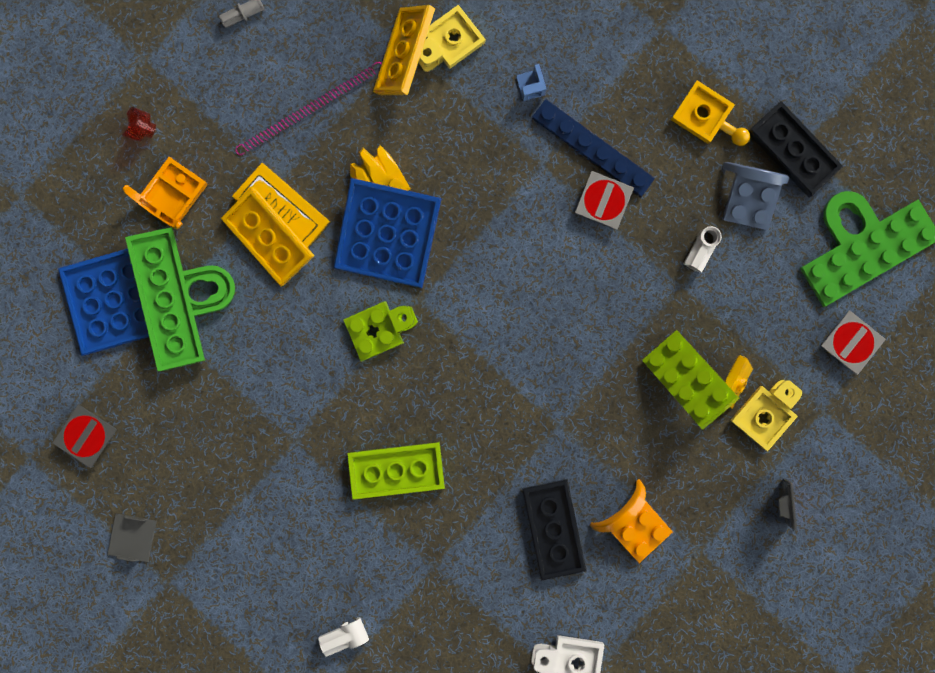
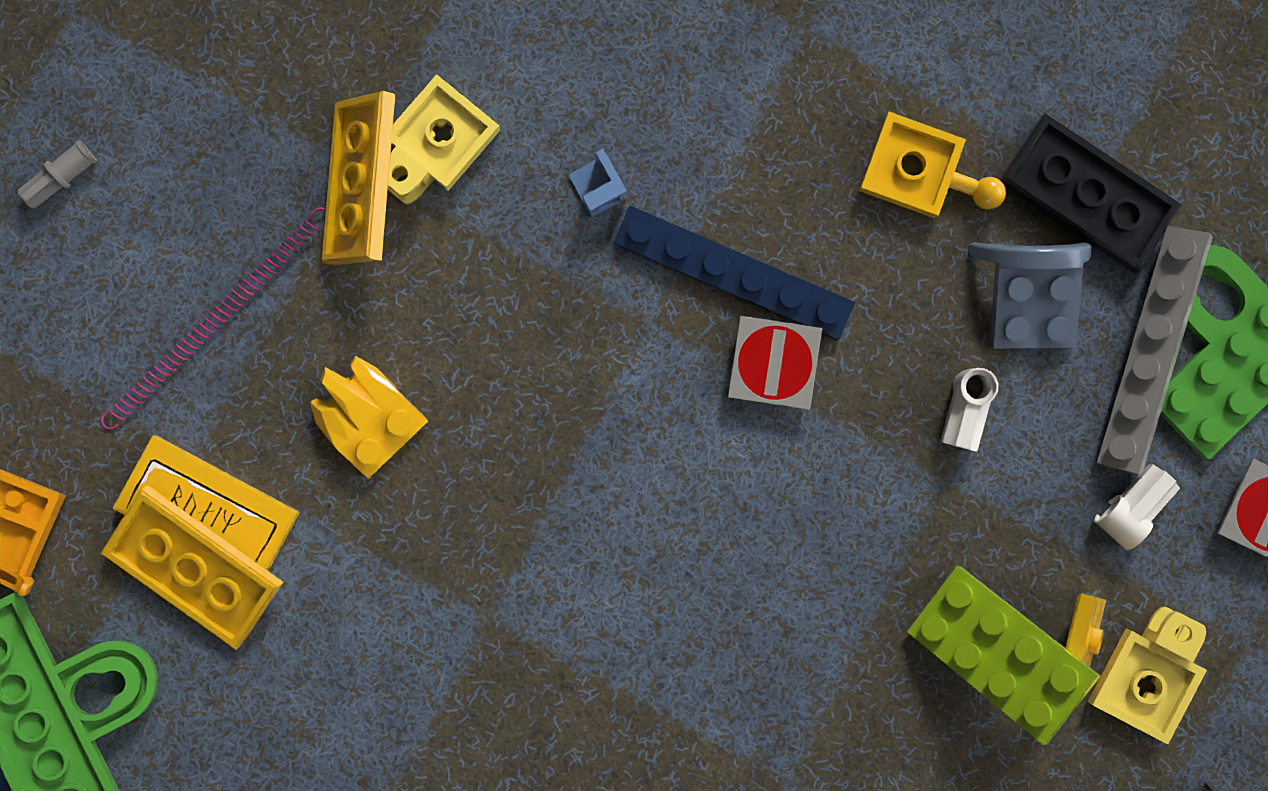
camera: 10 degrees left, 0 degrees up
(387, 232) = (402, 511): blue tile -> none
(389, 325) = (442, 671): lime plate -> none
(778, 324) = (1131, 513): none -> white piece
(810, 240) = (1154, 349): none -> light grey plate

